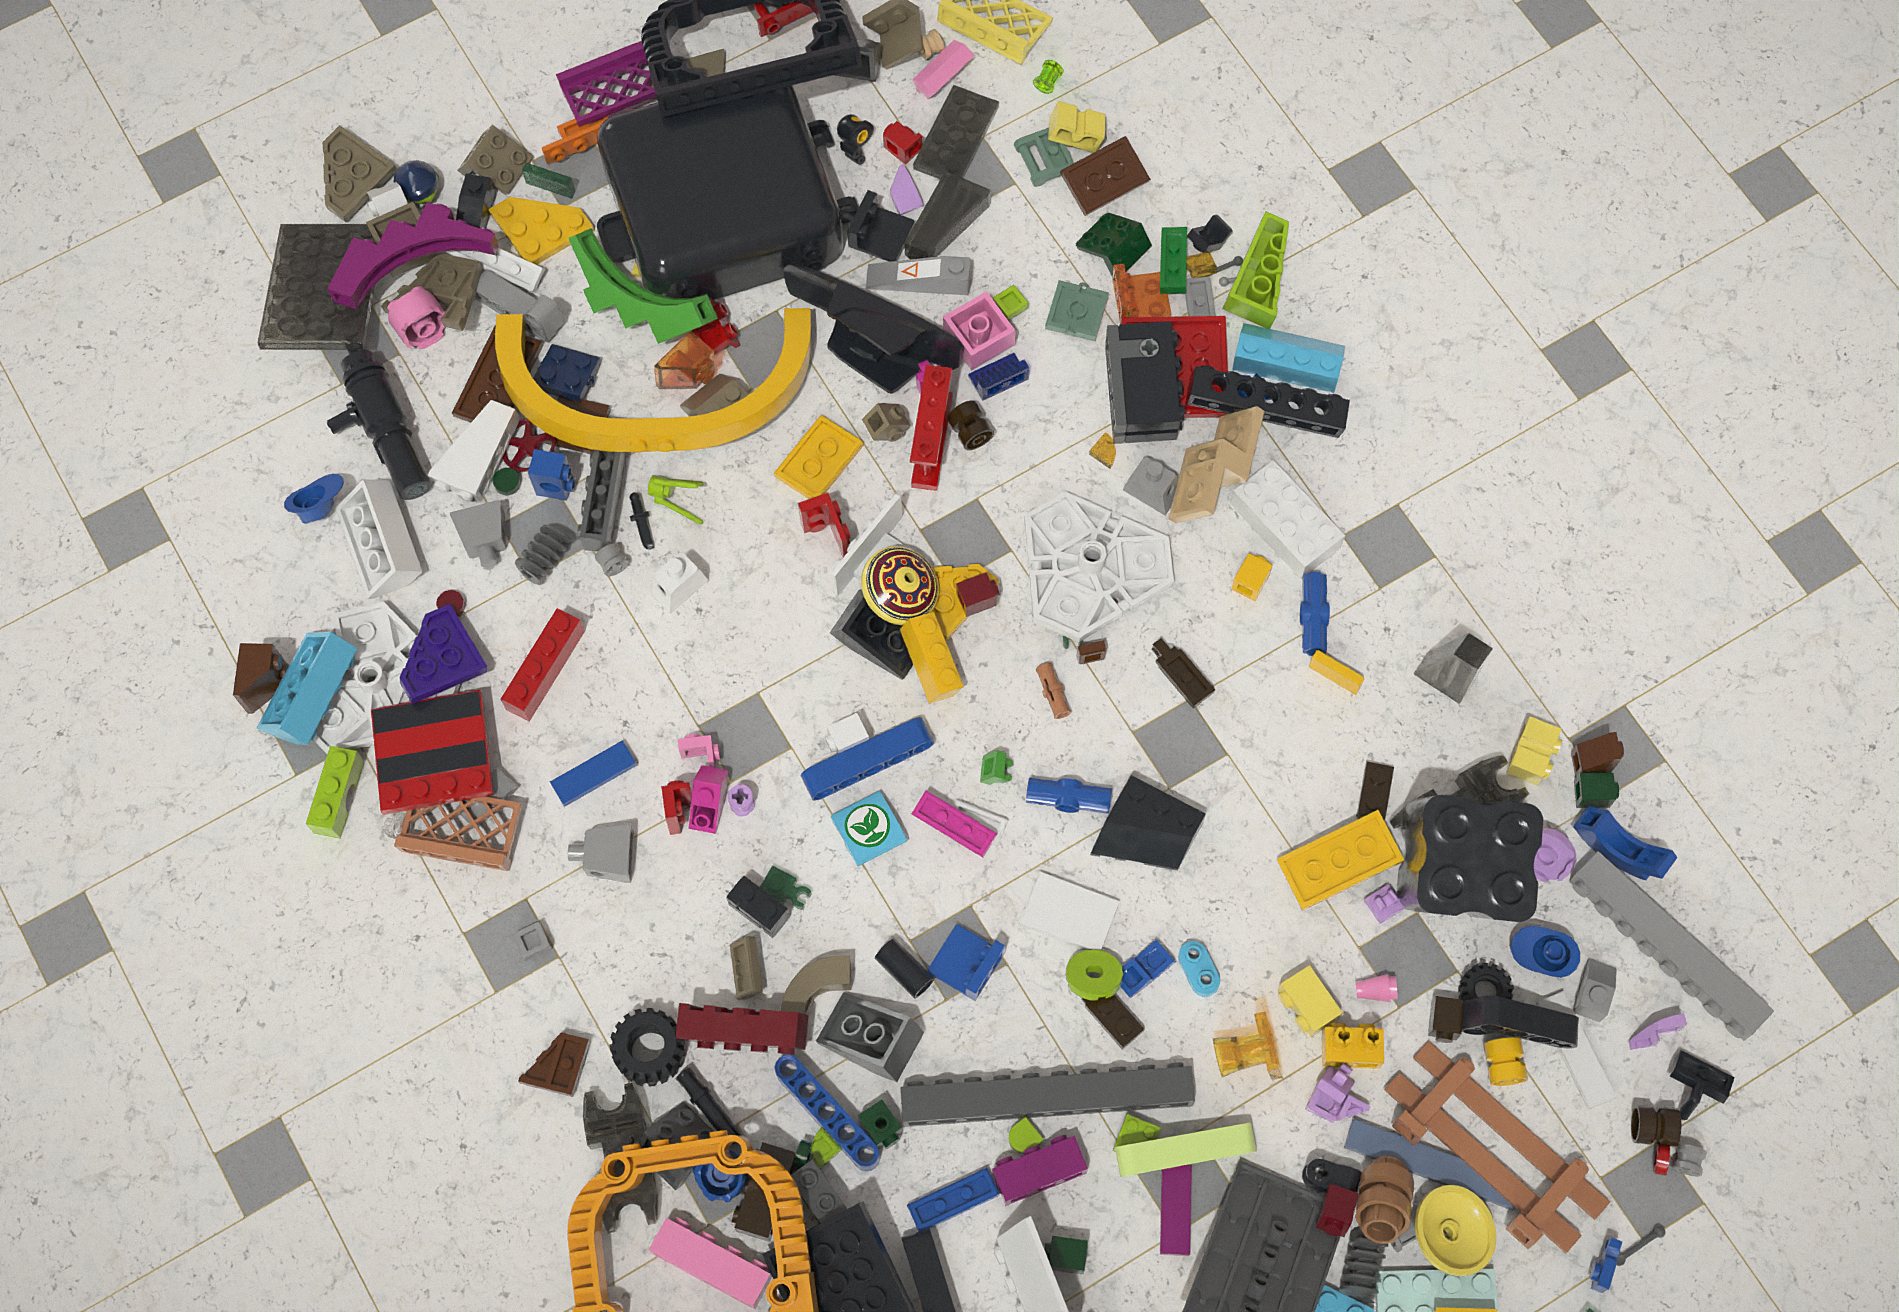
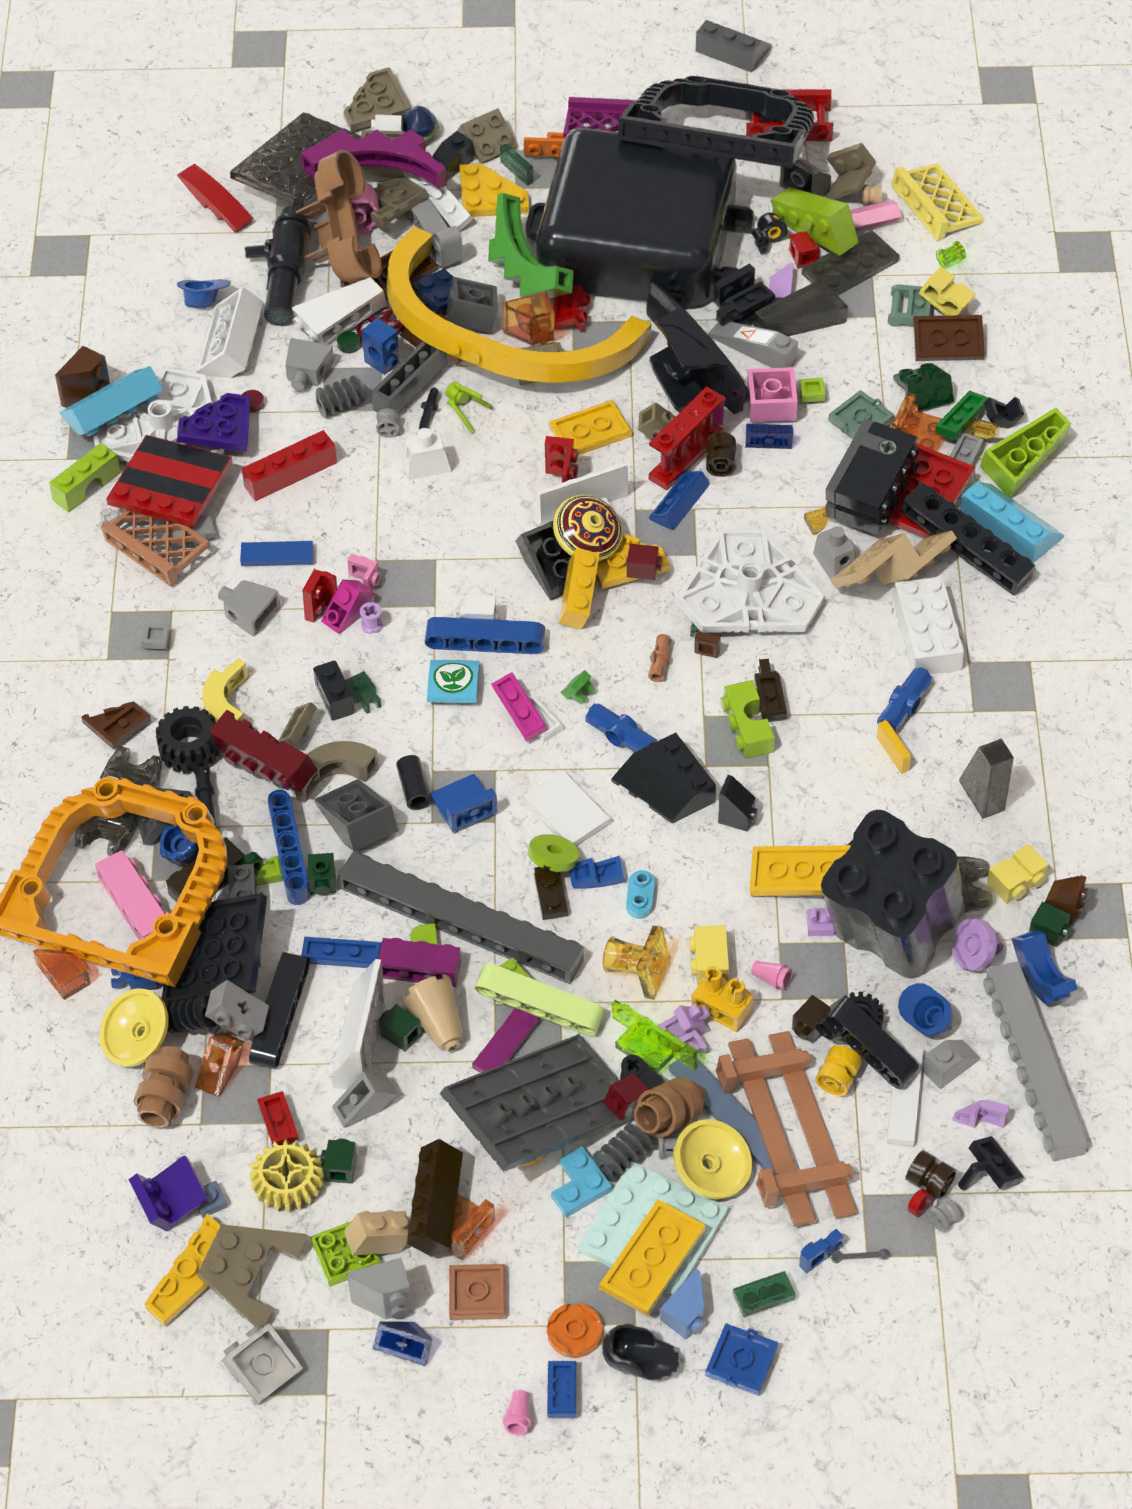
camera: 30 degrees right, 15 degrees down
(252, 376) = (215, 197): none -> red slope
(391, 308) = (336, 183): none -> medium nougat piece
(613, 375) = (472, 304): none -> dark grey slope
(644, 986) = (220, 686): none -> light yellow arch
(886, 235) = (744, 303): none -> black hinge
(909, 100) = (823, 218): none -> lime wedge
(957, 496) = (680, 499): none -> blue slope
(1094, 1218) = (436, 1008): none -> tan cone
(1196, 734) = (752, 736): none -> lime arch
(1235, 823) = (736, 805): none -> black slope
(1252, 576) = (872, 652): yellow brick -> none
(1312, 1135) = (649, 1041): none -> clear neon green bracket

